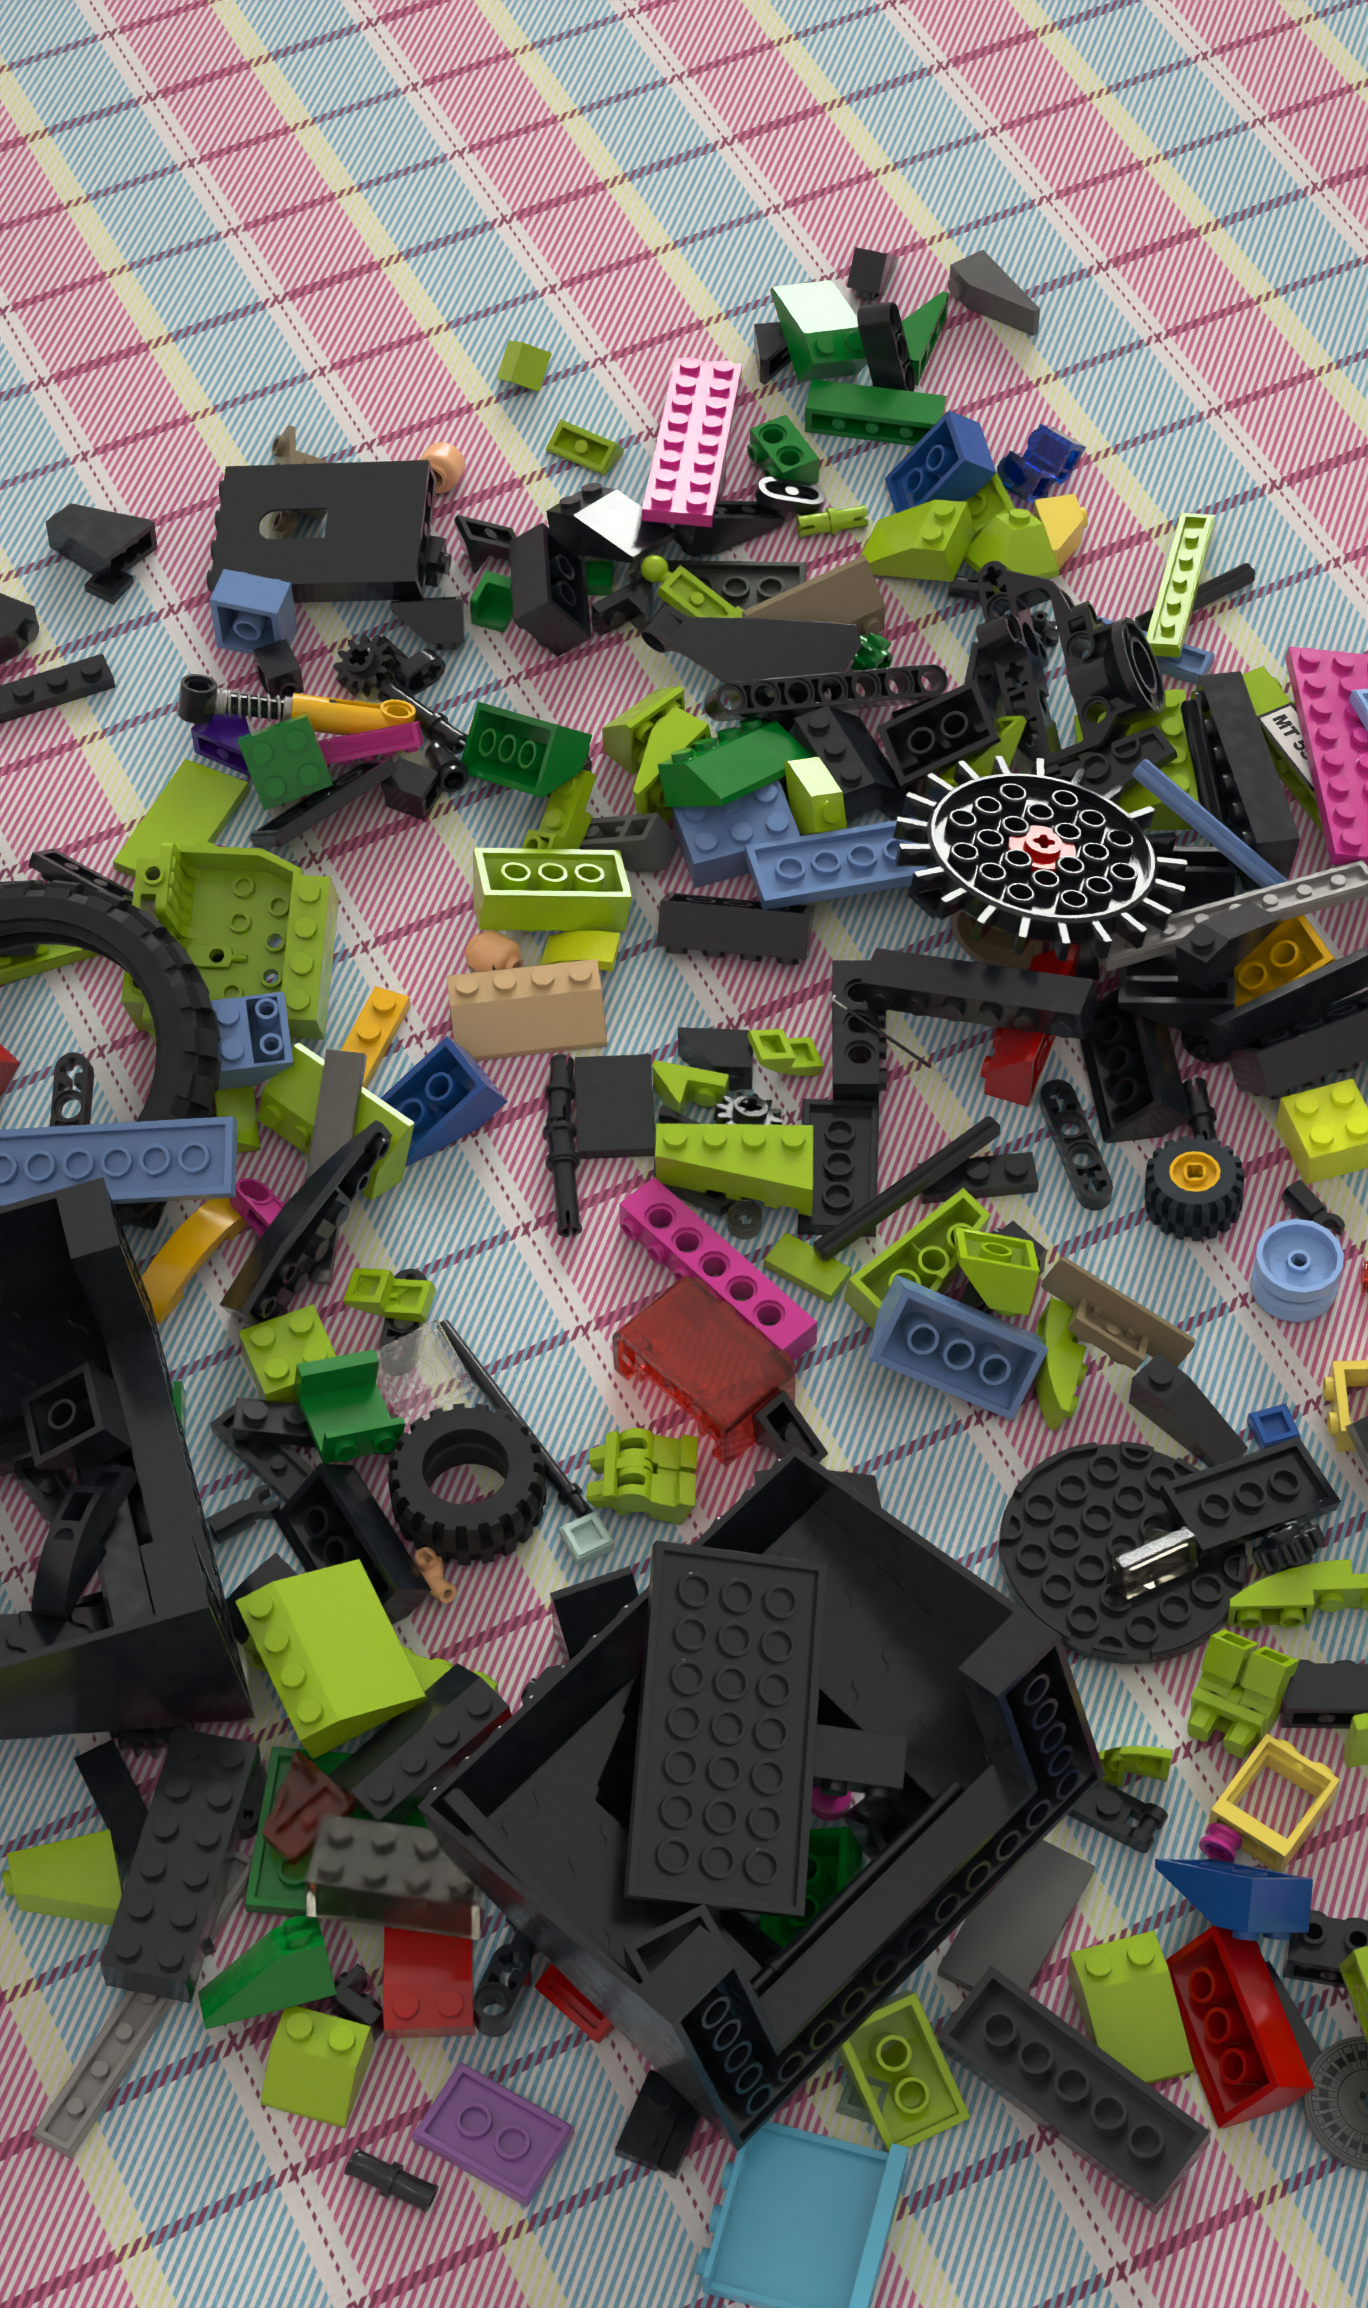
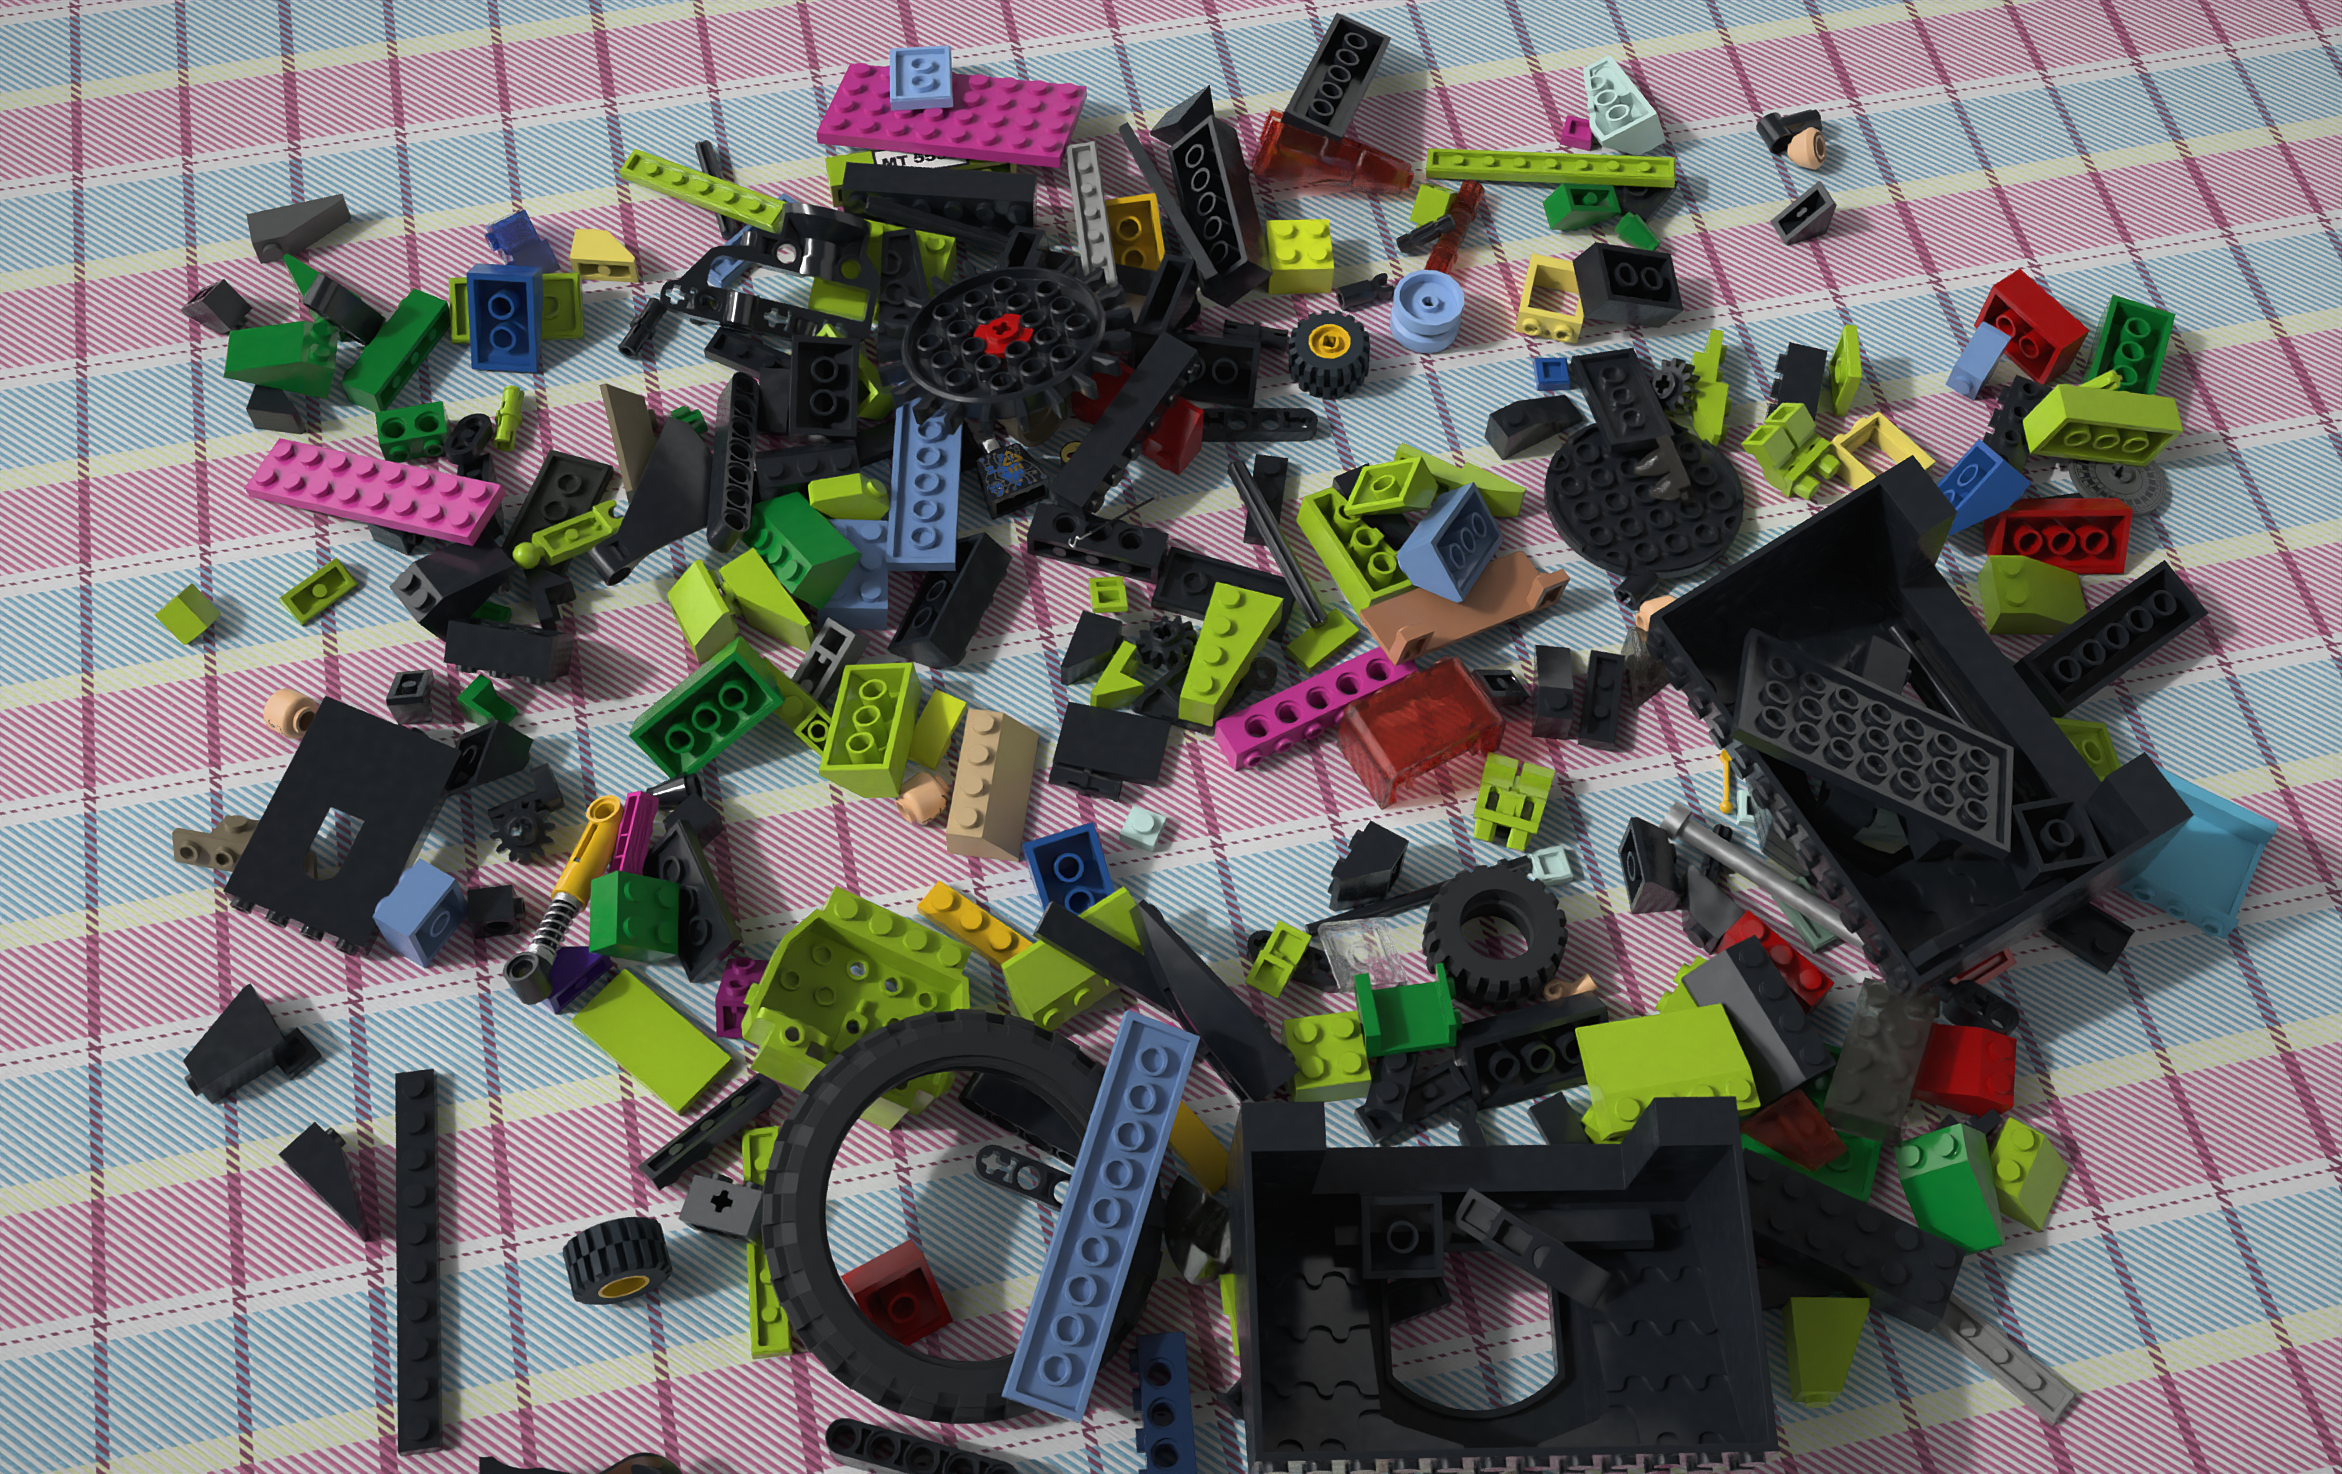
camera: 80 degrees left, 5 degrees up
(253, 1039) = (990, 987): medium blue slope -> none
(391, 2179) = (2124, 1139): black pin -> none
(433, 724) = (576, 813): black pin -> none
(493, 2134) = (2085, 1057): medium lavender tile -> none
(515, 1348) = (1369, 868): none -> black slope
(522, 1155) = (1142, 828): none -> light aqua plate
(563, 1162) = (1166, 794): black pin -> none
(908, 928) = (1009, 478): none -> black torso
(920, 1419) = (1427, 622): none -> nougat bracket
(921, 541) = (574, 357): lime slope -> none
(985, 1563) = (1636, 587): none -> black piece
(1017, 542) = (619, 291): lime slope -> none
(1113, 1319) = (1452, 434): dark tan bracket -> none
(1207, 825) = (1007, 226): medium blue axle -> none
(1222, 943) = (1139, 246): black slope -> none

